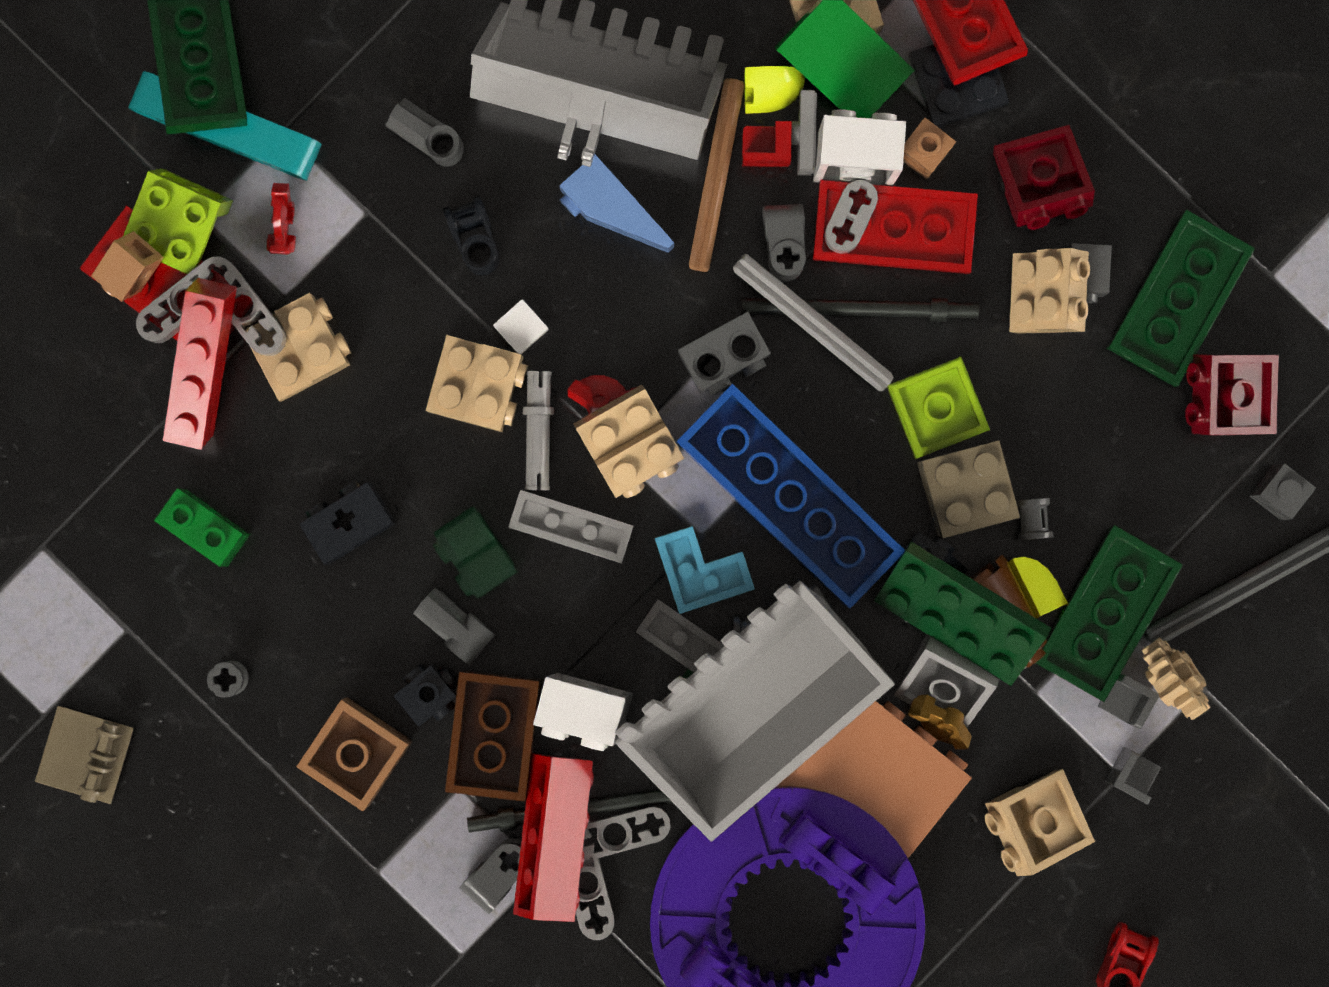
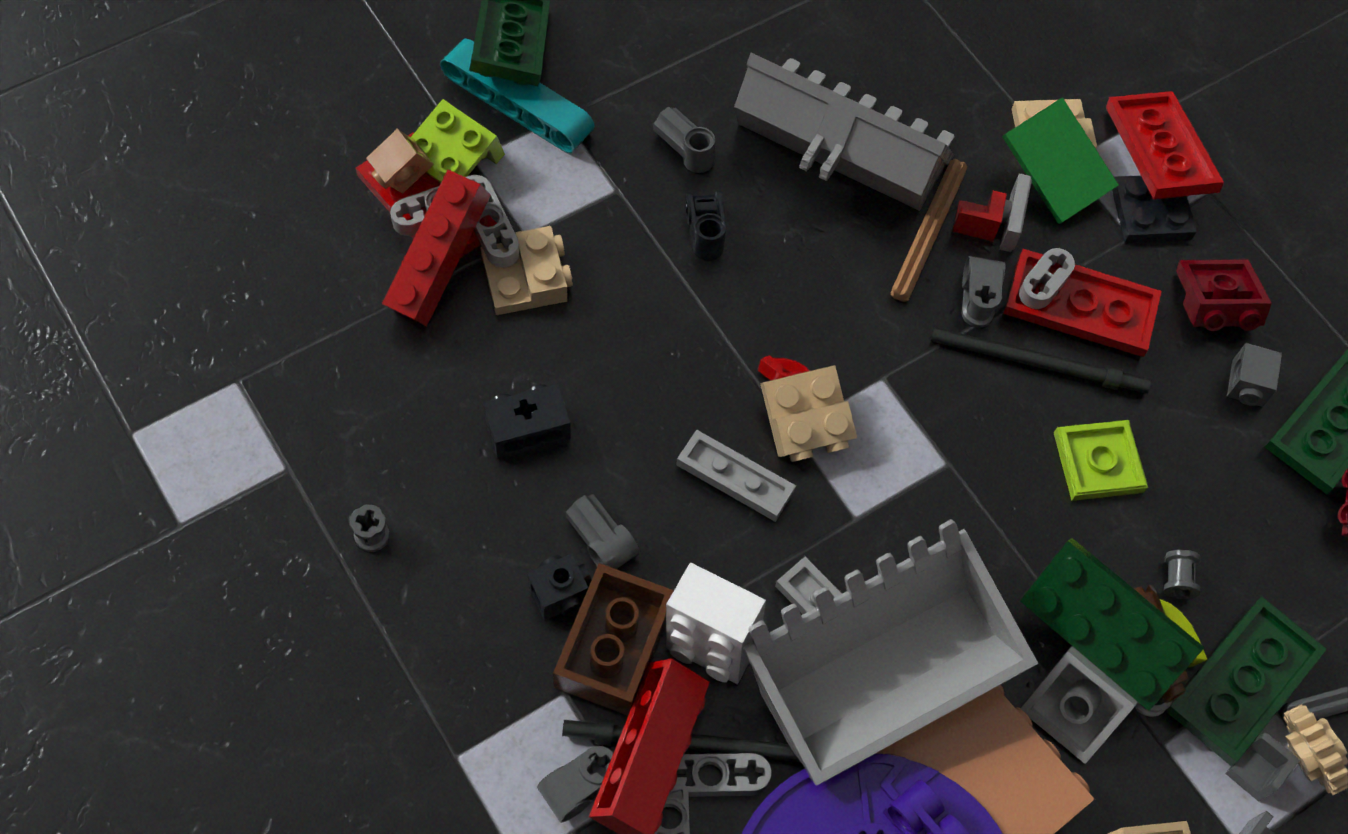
camera: 10 degrees right, 25 degrees down
(84, 755) = (205, 567): dark tan hinge -> none
(202, 527) = (391, 390): green brick -> none
(282, 216) = (544, 172): red piece -> none
(354, 753) = (471, 622): medium nougat brick -> none
(475, 553) = (640, 474): clear green brick -> none
(476, 384) = (678, 338): tan plate -> none
(521, 327) = (729, 304): white tile -> none
(538, 429) = (728, 374): light grey pin -> none
(609, 204) = (833, 227): medium blue slope -> none
(699, 583) = (840, 547): medium azure plate -> none
(719, 345) = (907, 356): dark grey brick -> none
(771, 88) = (990, 171): neon yellow brick -> none
(790, 496) = (946, 479): blue brick -> none
(813, 322) = (998, 357): light grey axle -> none
(860, 148) = (1068, 214): white brick -> none
(926, 148) = (1119, 246): medium nougat brick -> none
(941, 723) = (1070, 742): pearl gold piece -> none
(968, 489) = (1125, 528): dark tan brick -> none
(1049, 291) = (1221, 377): tan plate -> none

